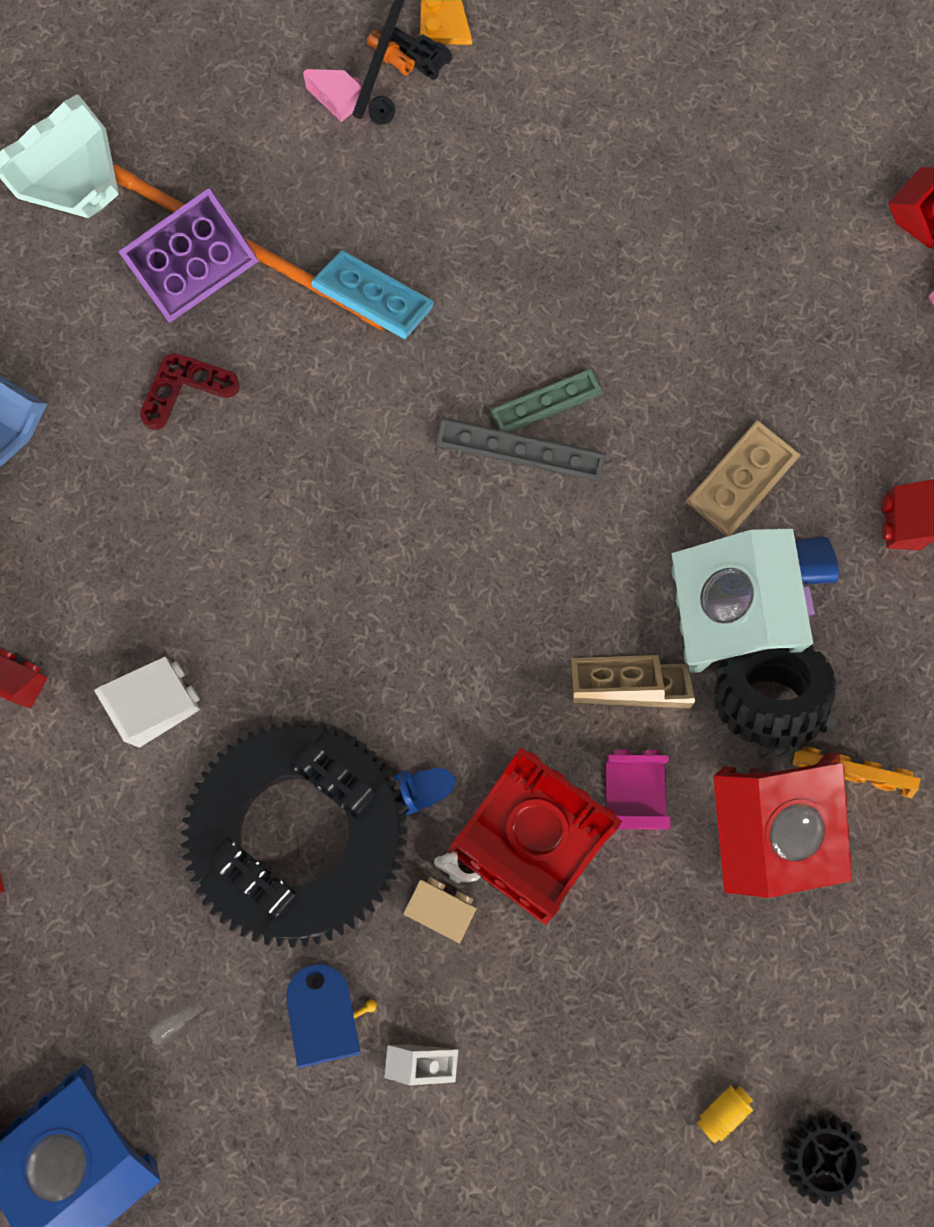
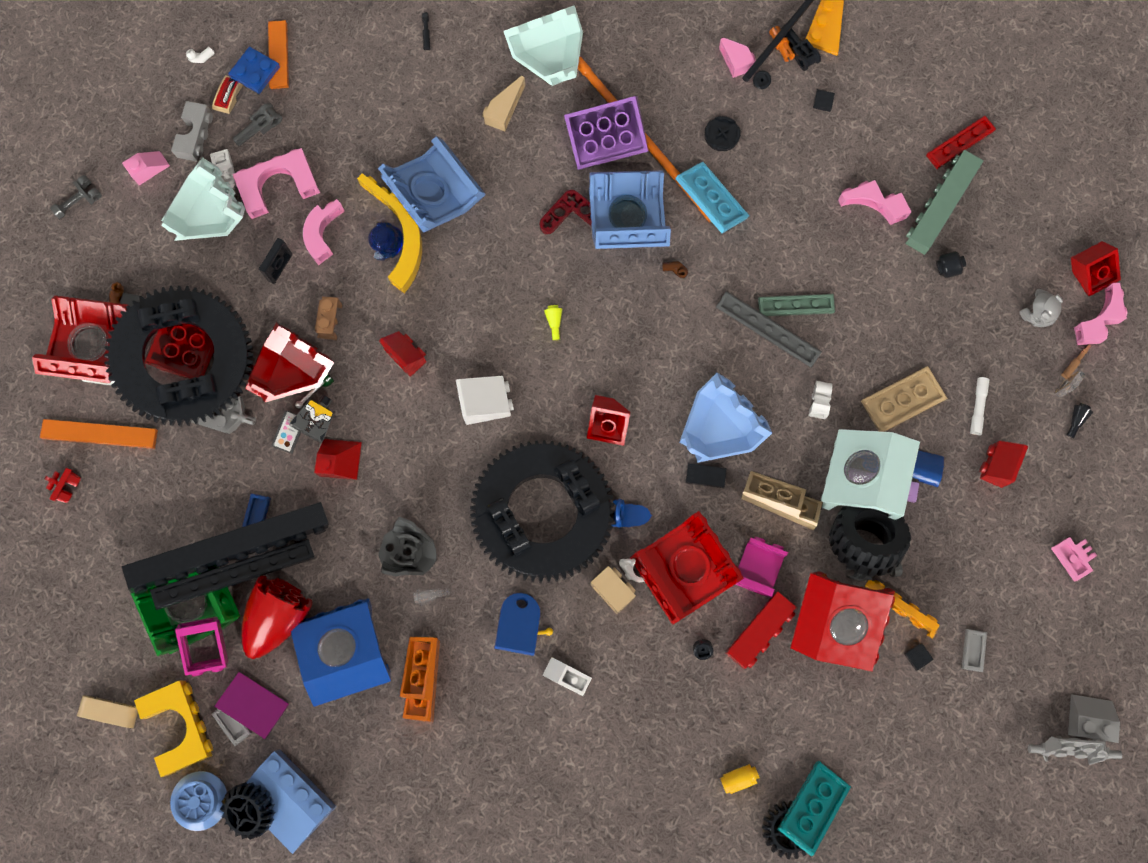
camera: 25 degrees right, 0 degrees up
(28, 270) = (503, 105): none -> tan slope
(109, 993) = (407, 537): none -> dark grey piece
(206, 1157) = (420, 678): none -> orange slope
(210, 543) = (553, 315): none -> neon yellow cone
(260, 352) = (628, 209): none -> medium blue panel
(342, 664) = (608, 421): none -> red slope
(354, 202) = (722, 133): none -> black tile
(360, 410) = (677, 267): none -> reddish brown arm
(476, 110) = (823, 100): none -> black tile
(506, 605) = (722, 422): none -> light blue panel
(511, 689) = (706, 475): none -> black tile
(586, 214) = (892, 207): none -> bright pink arch
(601, 942) = (703, 649): none -> black tile
(631, 518) = (821, 397): none -> white leg
(673, 882) = (761, 630): none -> red brick
(682, 102) = (961, 142): none -> red tile
(692, 189) = (944, 202): none -> sand green brick
(734, 270) = (951, 264): none -> black head
(843, 432) = (978, 416): none -> white piece
(848, 1115) = (814, 808): none -> teal tile
(884, 283) = (1045, 309): none -> light grey helmet
(903, 831) = (918, 656): none -> black tile

